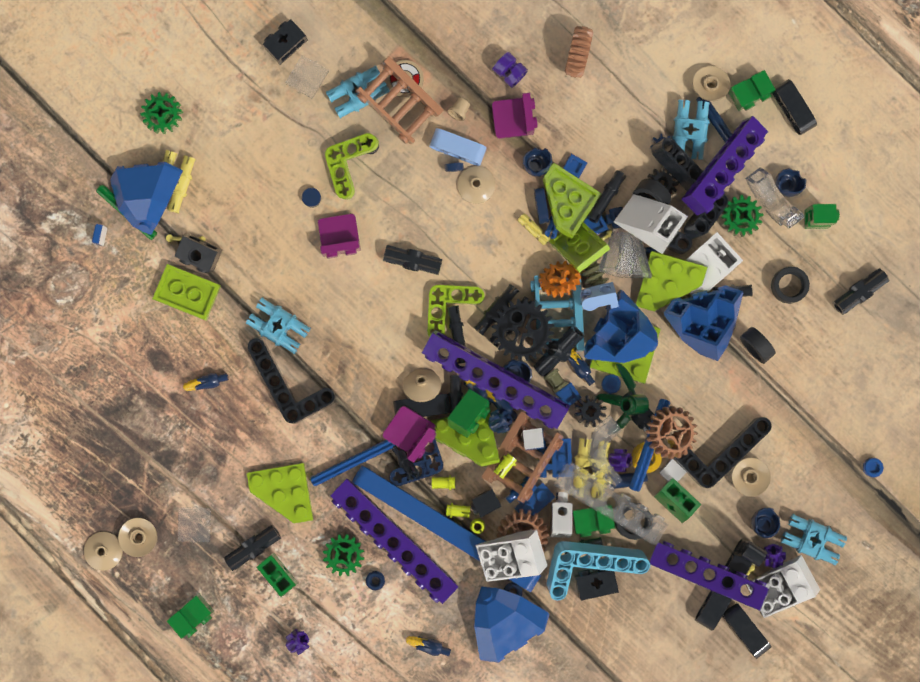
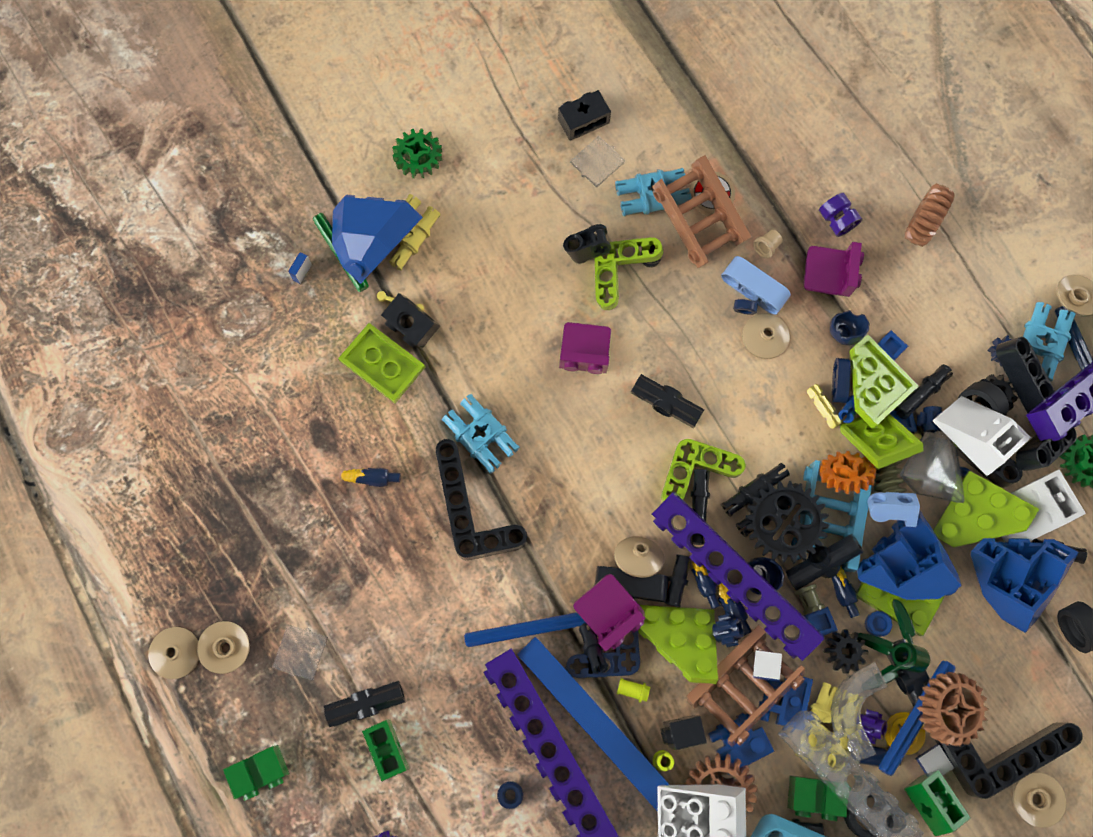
camera: 10 degrees right, 10 degrees down
(284, 491) = (426, 641): lime plate -> none
(311, 197) = (564, 295): dark blue tile -> none
(319, 151) = (586, 244): none -> black piece
(338, 547) = (463, 754): green gear -> none
(457, 510) = (642, 732): neon yellow pin -> none
(468, 413) = (690, 608): green brick -> none
(506, 465) = (722, 690): neon yellow pin -> none
(561, 525) = (776, 791): white torso -> none

